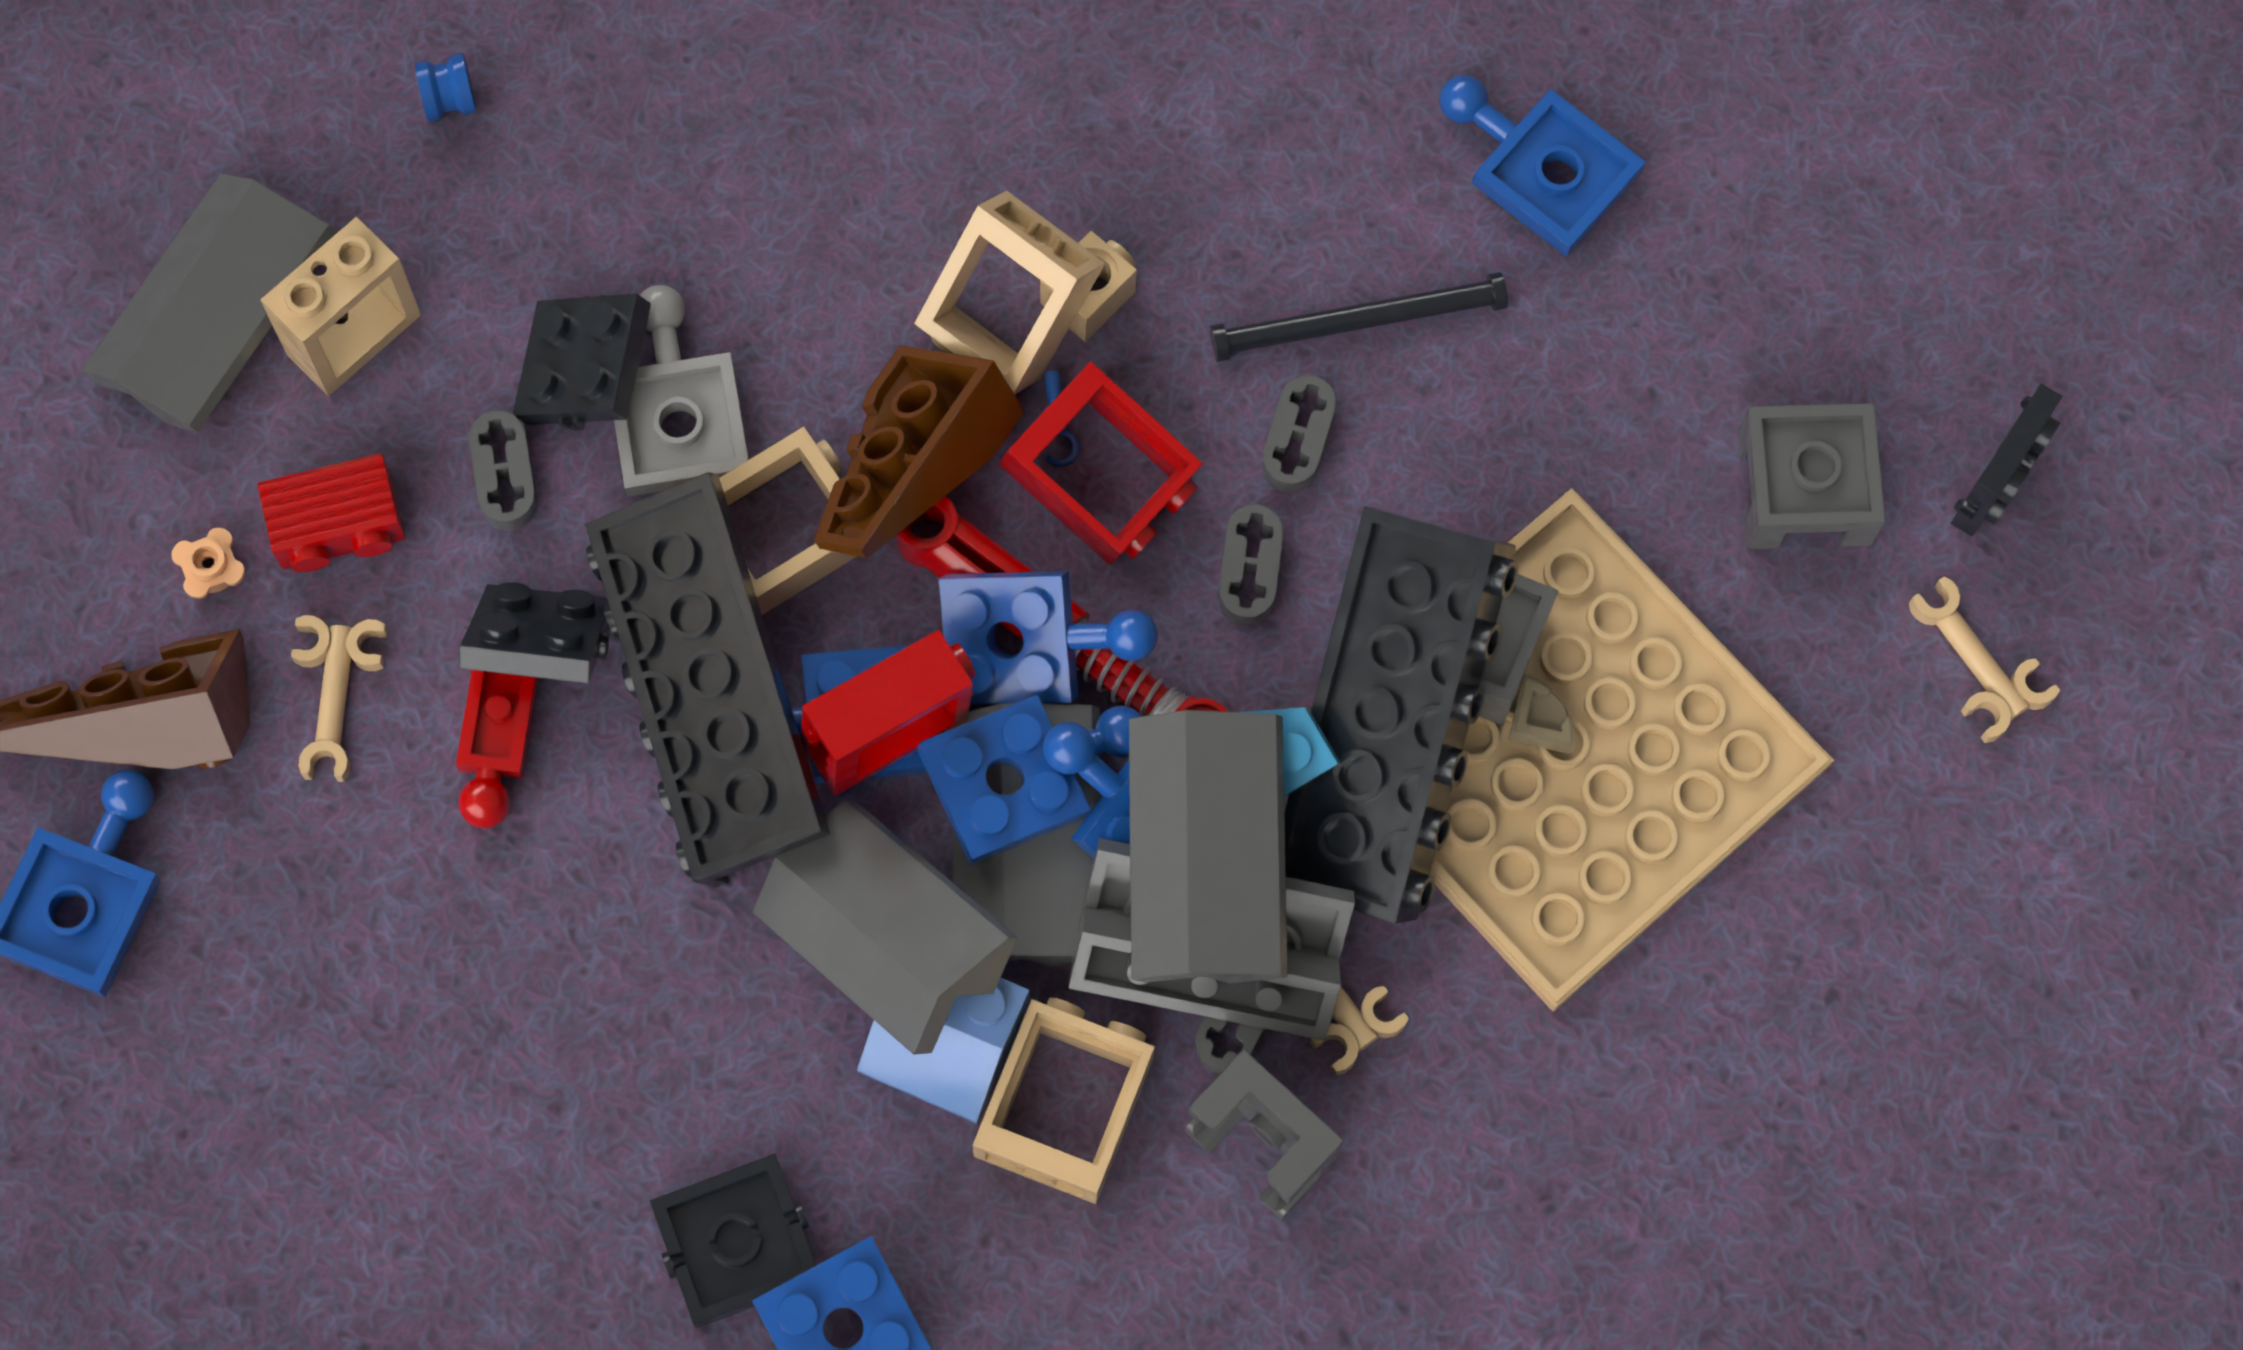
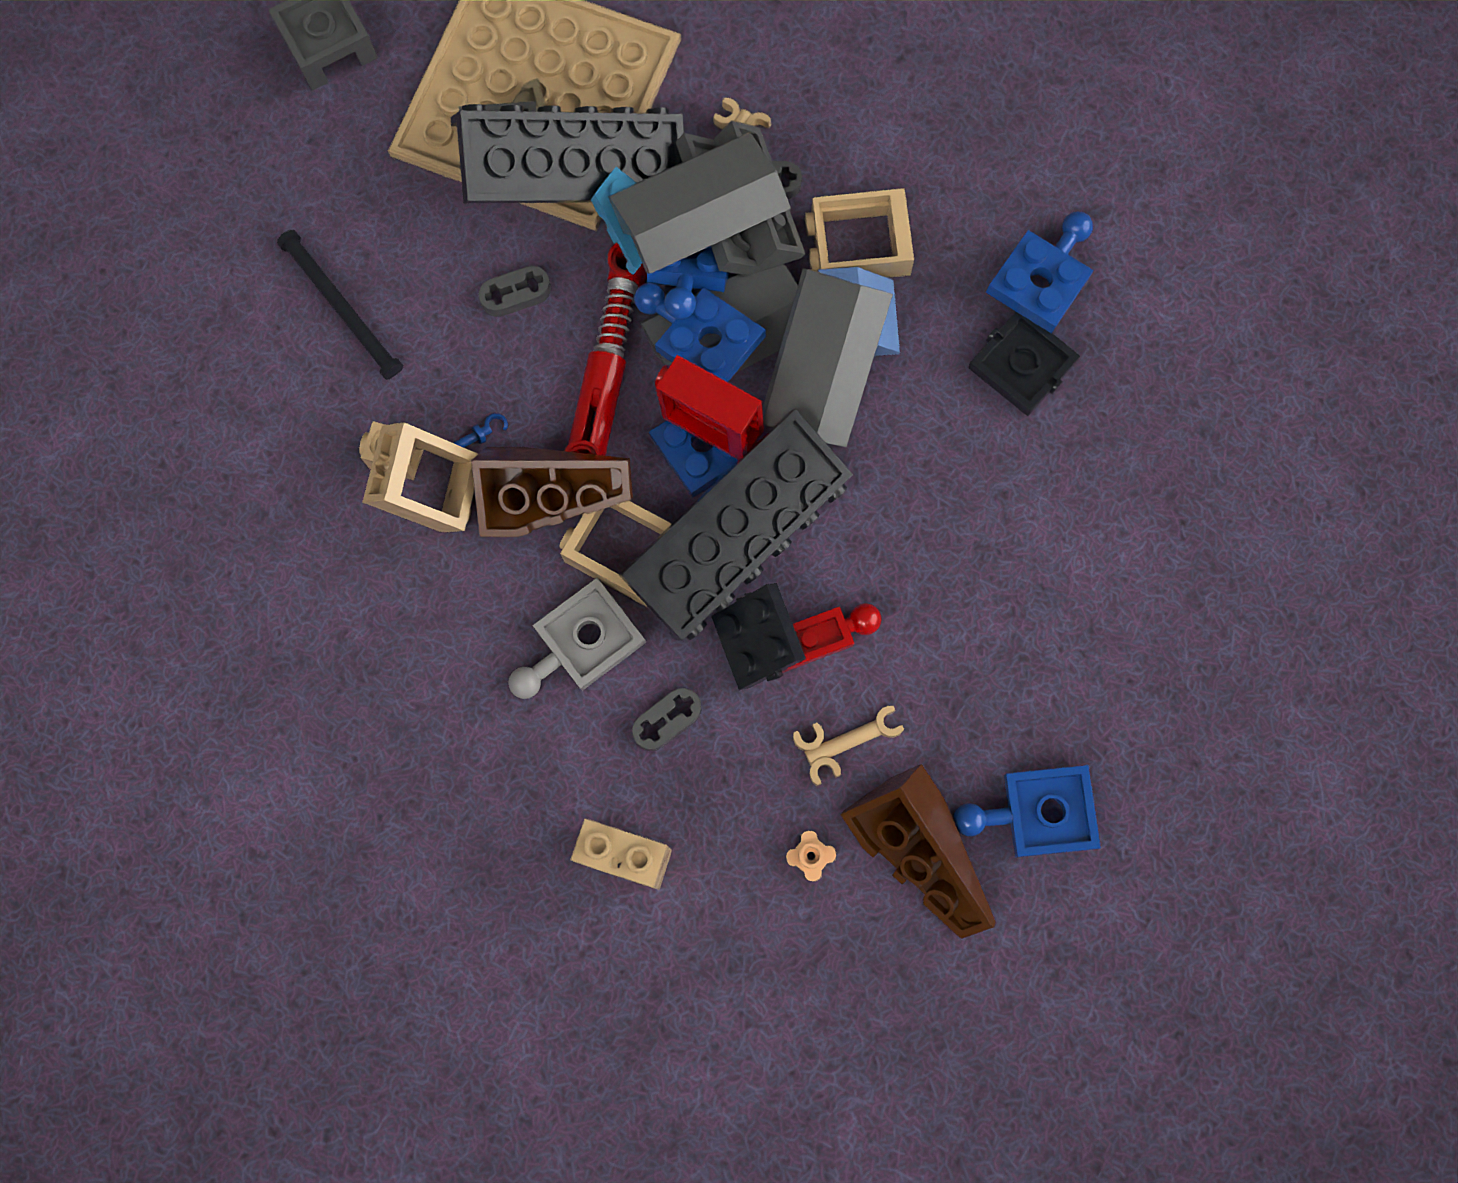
camera: 110 degrees left, 5 degrees up
(202, 303) = (652, 950): dark grey slope -> none
(331, 513) = (745, 798): red brick -> none
(445, 87) = (444, 886): blue wheel -> none
(582, 360) = (579, 705): black plate -> none
(1043, 613) = (604, 369): blue plate -> none
(1139, 427) = (490, 419): red window -> none
(1276, 1119) = (827, 122): dark grey panel -> none
(1285, 429) = (428, 295): dark grey beam -> none
(1546, 134) = (208, 262): blue plate -> none

